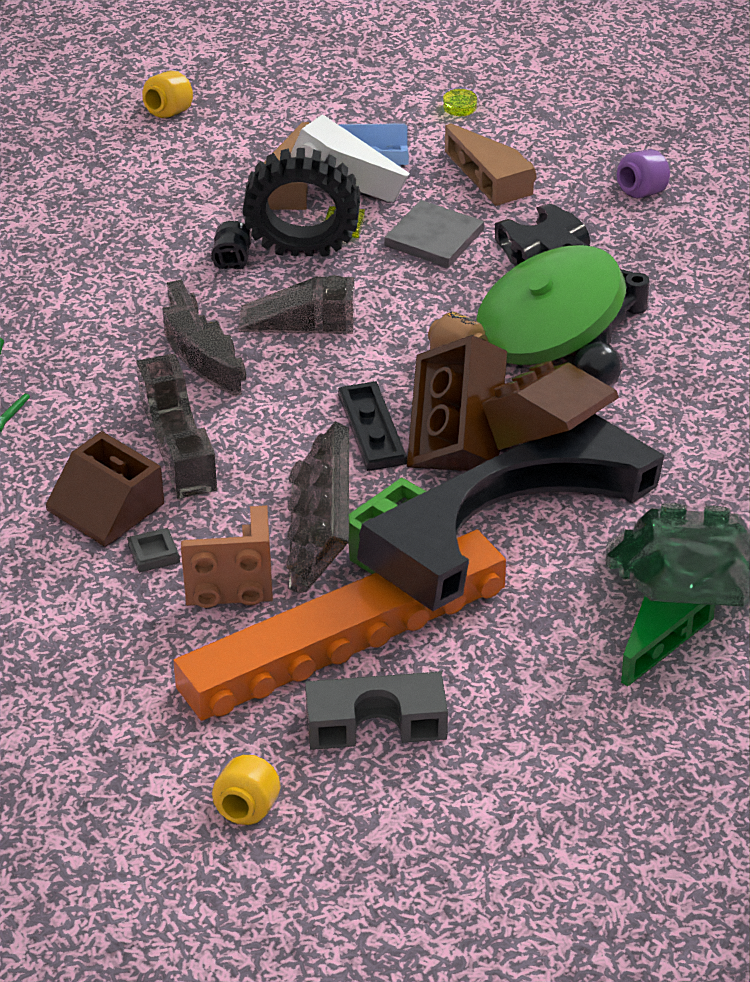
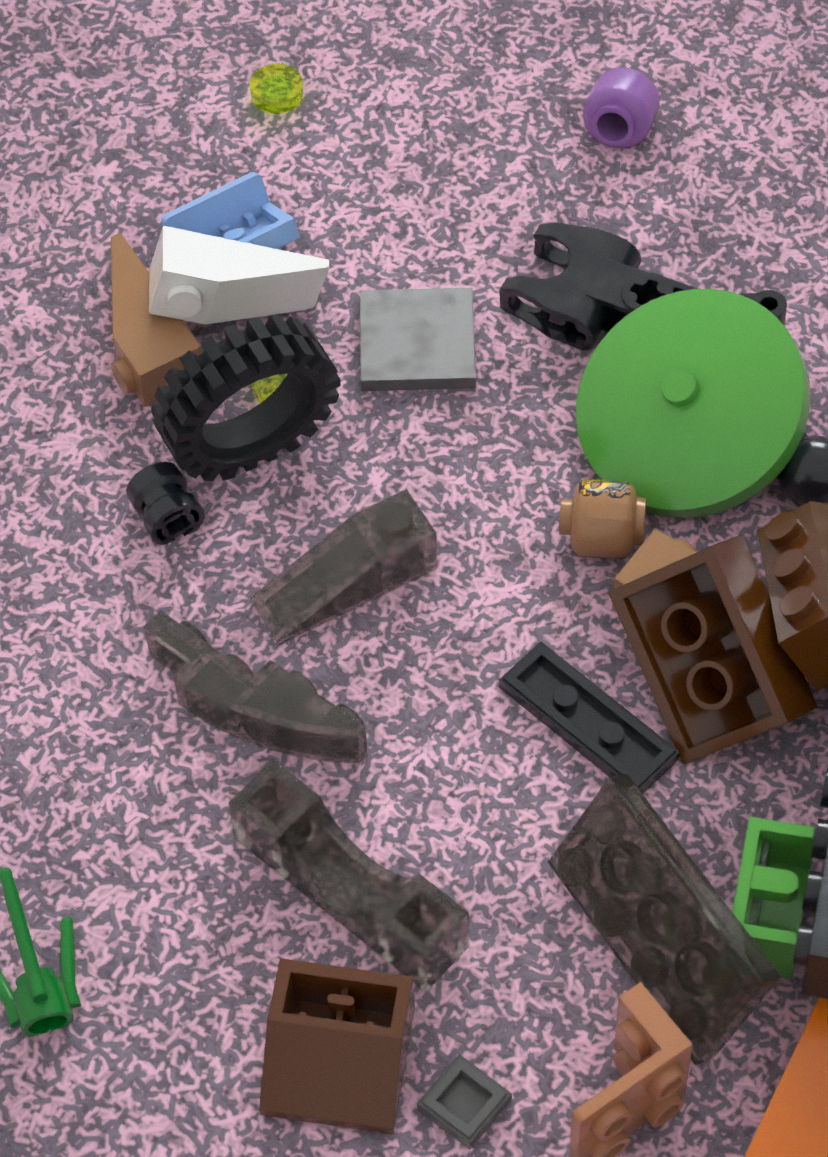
camera: 30 degrees left, 15 degrees up
(492, 166) = (413, 186): medium nougat slope -> none

